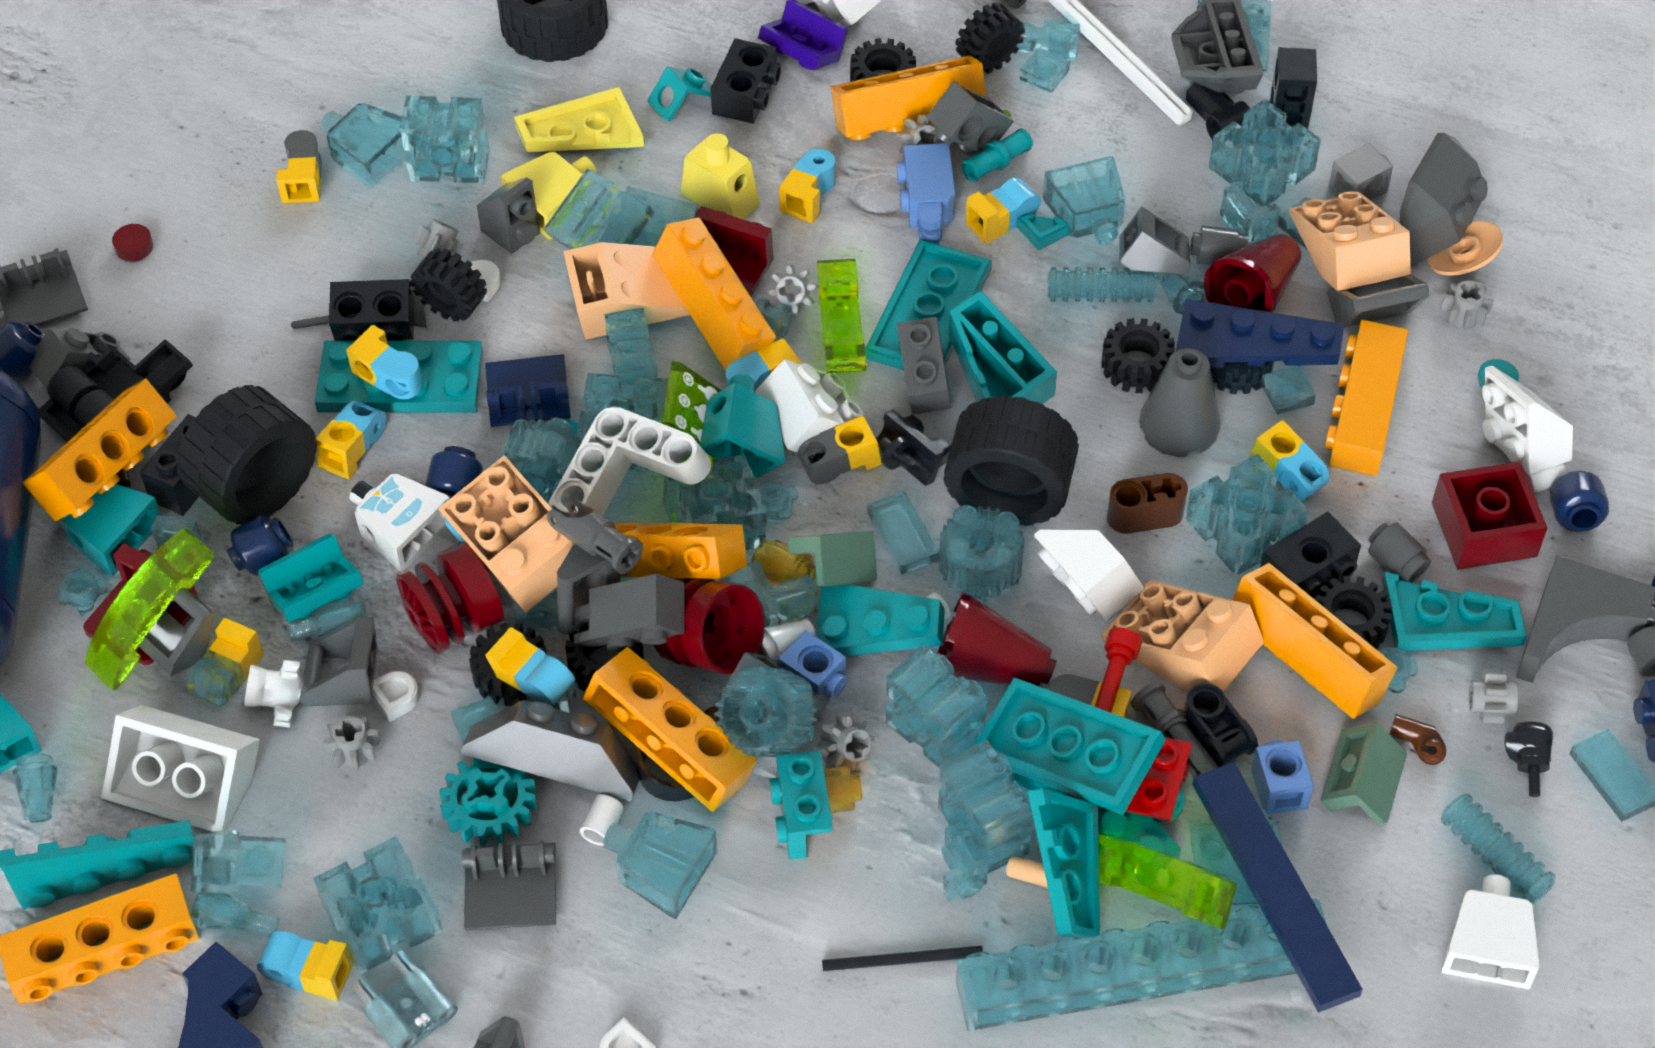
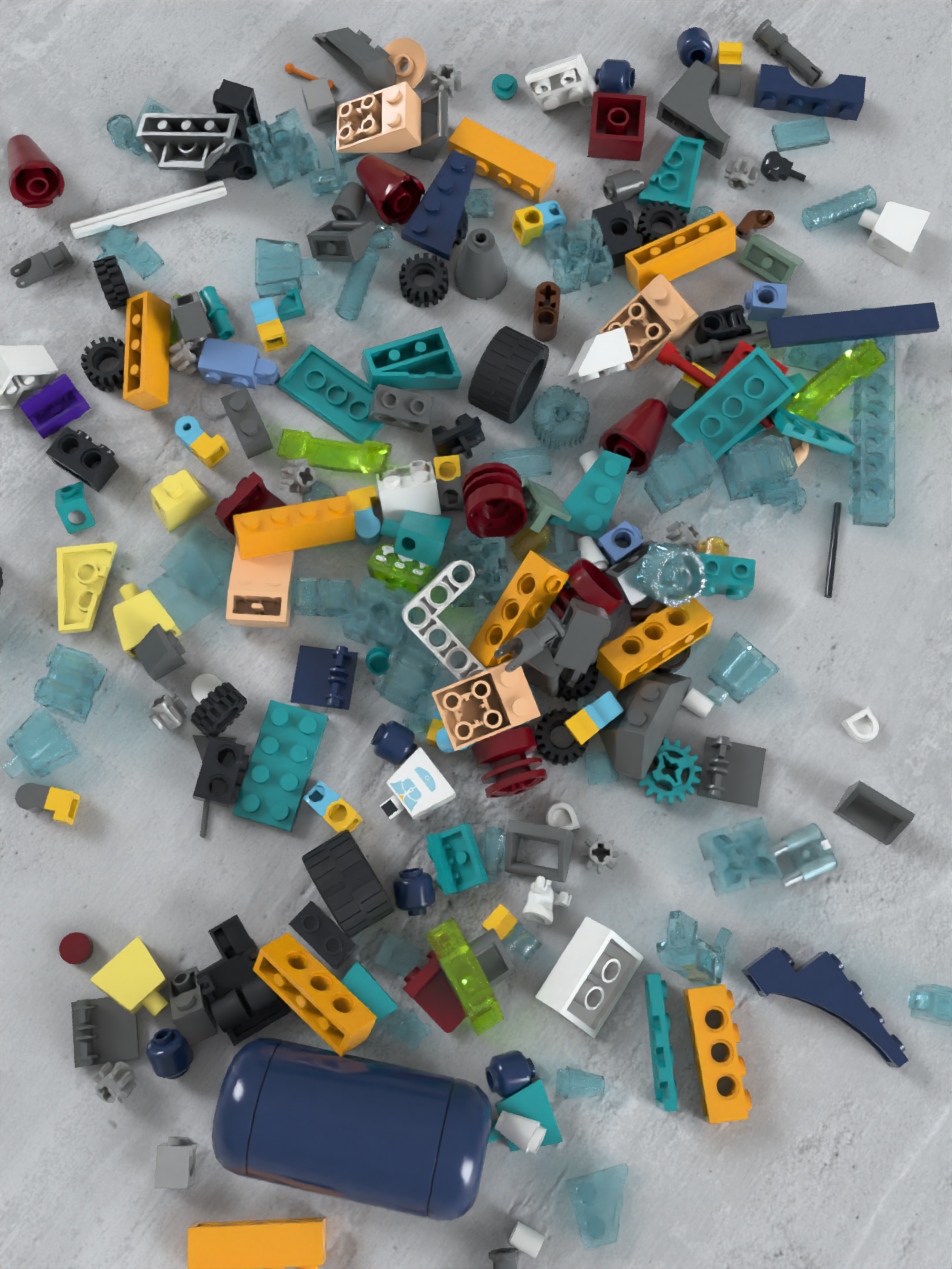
camera: 75 degrees left, 20 degrees up
(40, 701) = (509, 1073): none -> dark blue head
(102, 294) = (133, 980): none -> light yellow torso
(306, 964) = (764, 913): leg -> none
(383, 366) = (287, 770): leg -> none
(817, 491) = (494, 501): none -> dark red wheel
(848, 219) = (247, 423): none -> dark grey brick
(1400, 185) = (289, 68): none -> orange hinge

